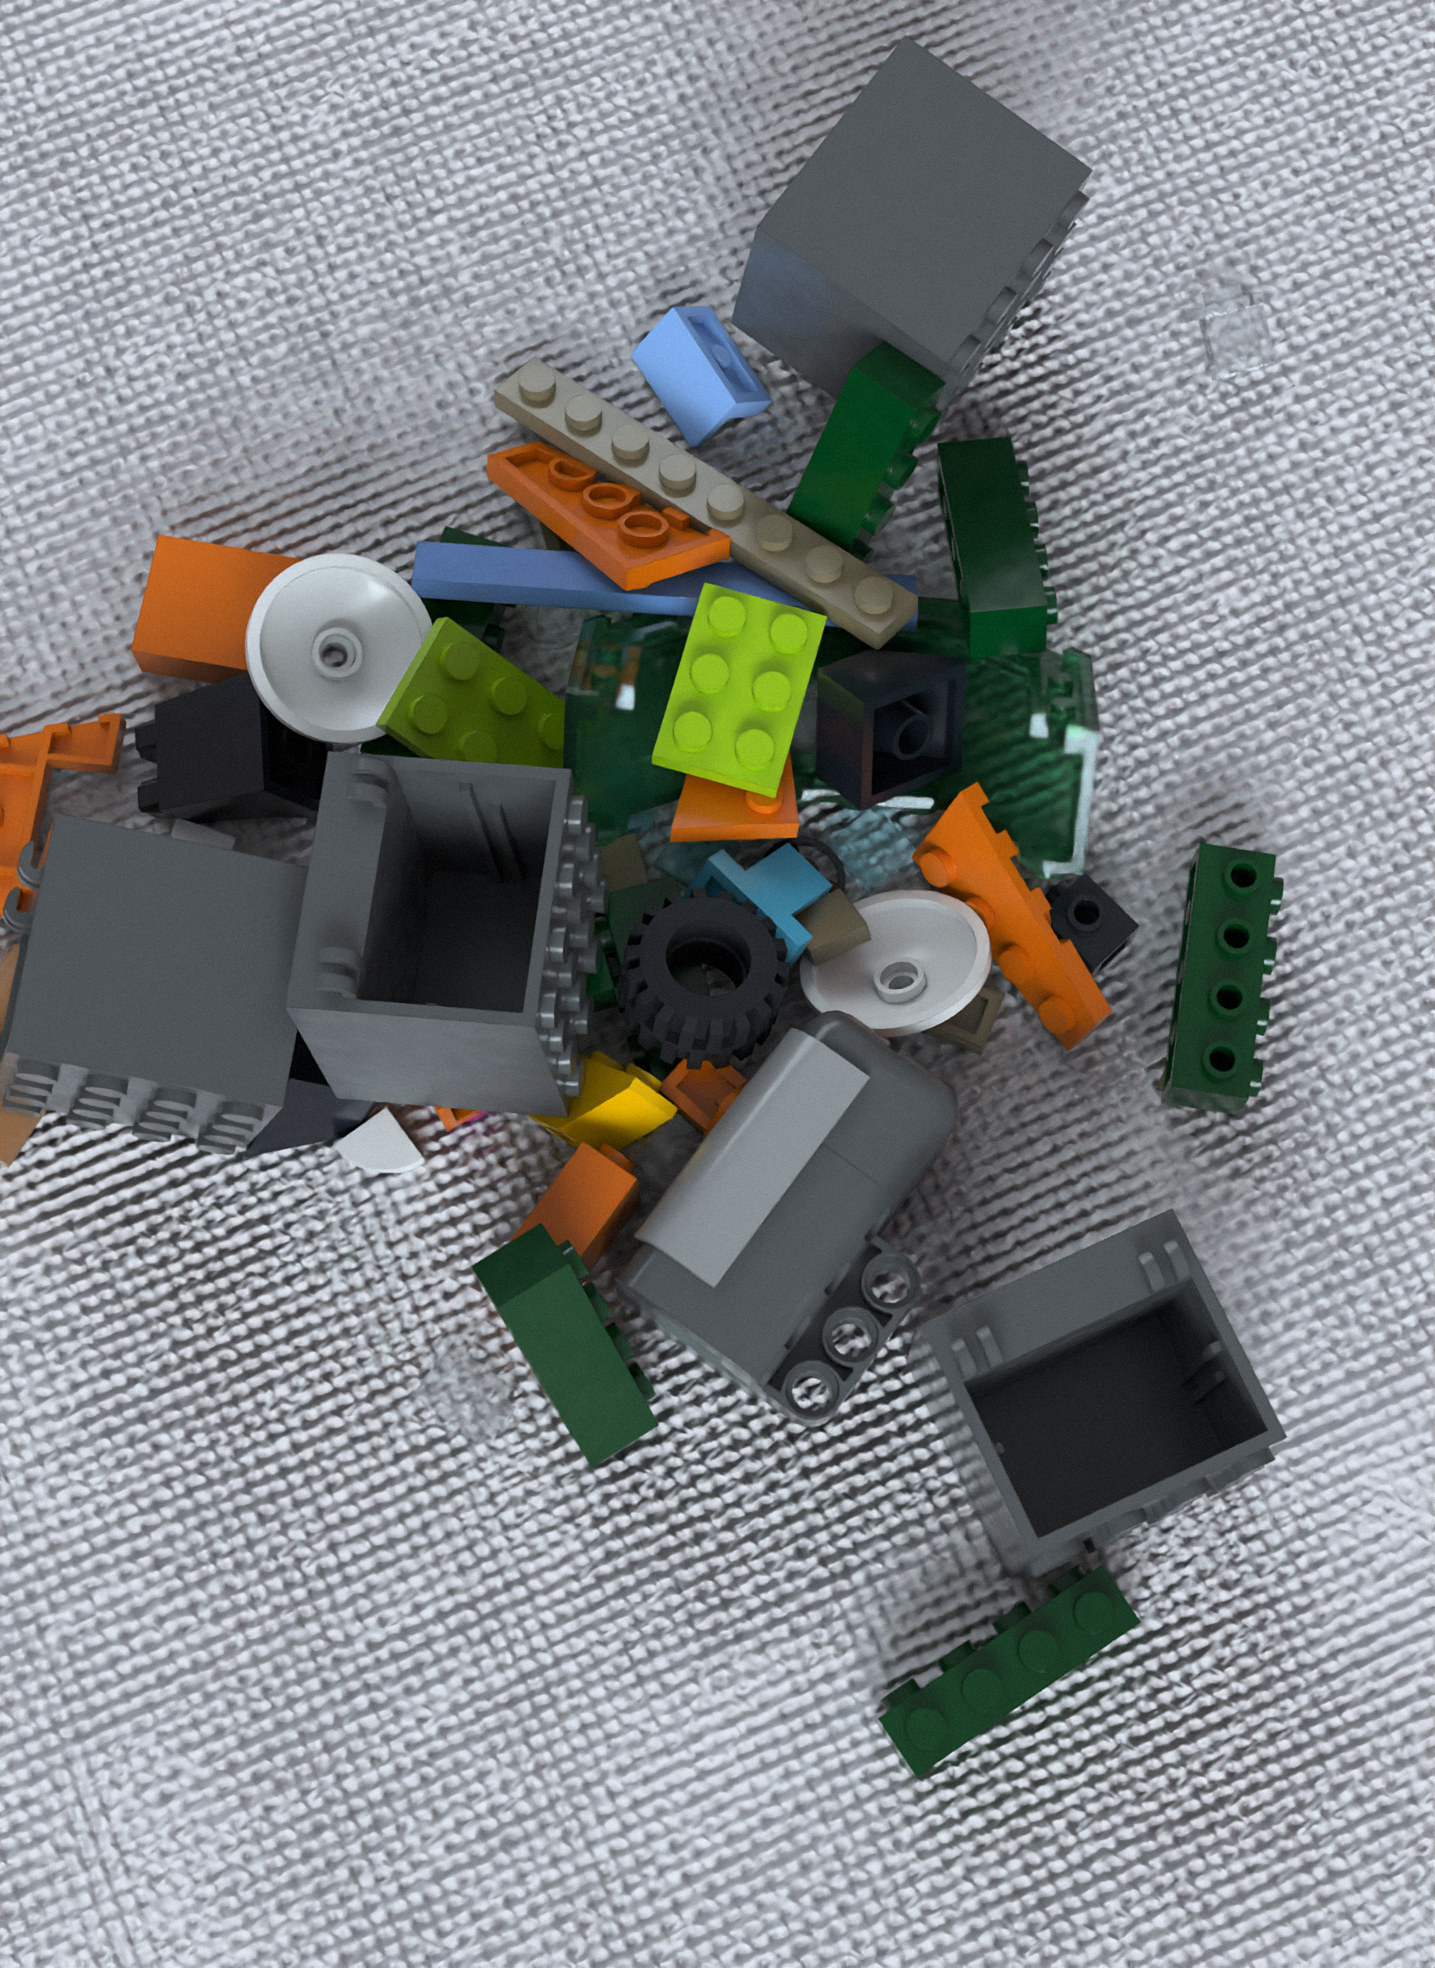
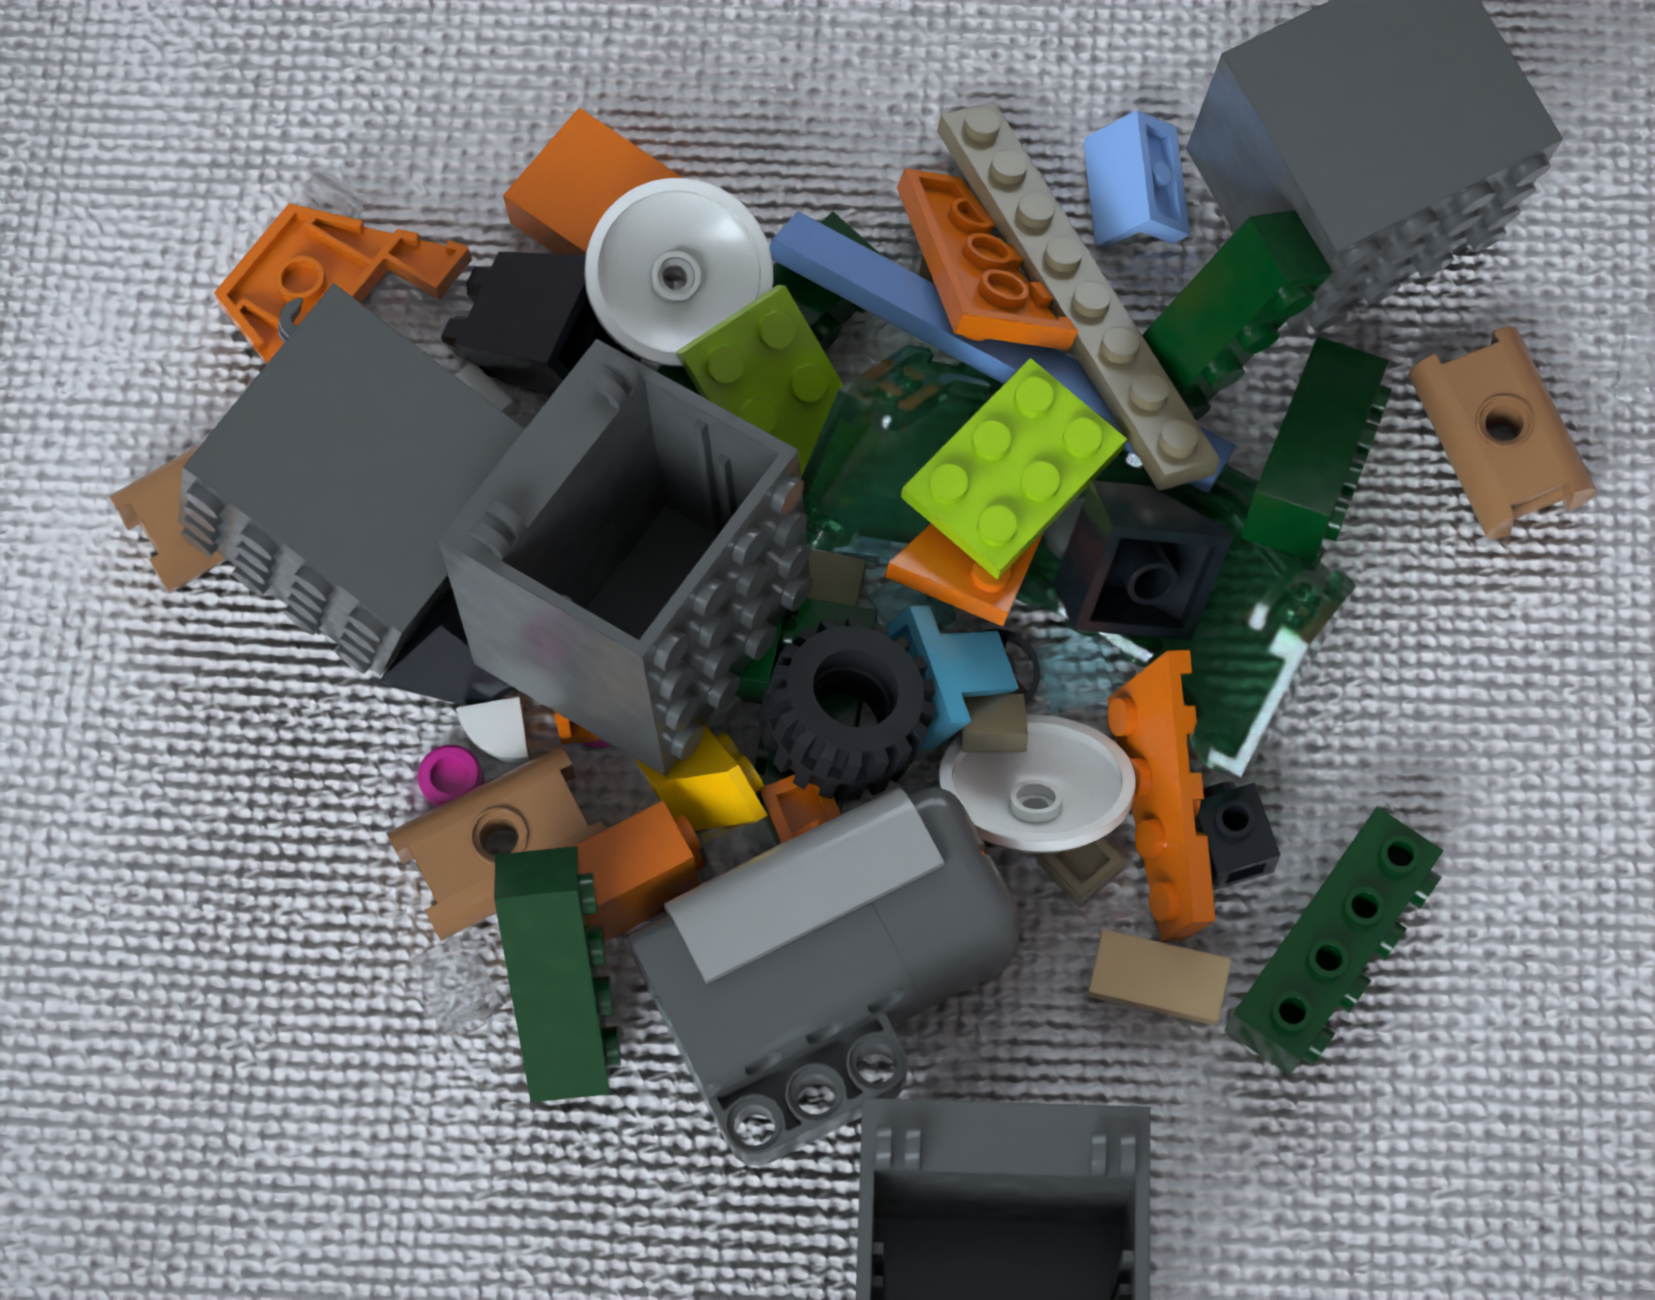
camera: 30 degrees right, 5 degrees down
(361, 1211) = (448, 774): none -> dark pink tile
(402, 1282) = (452, 837): none -> medium nougat piece
(1082, 1083) = (1159, 977): none -> tan tile
(1149, 497) = (1502, 476): none -> medium nougat piece

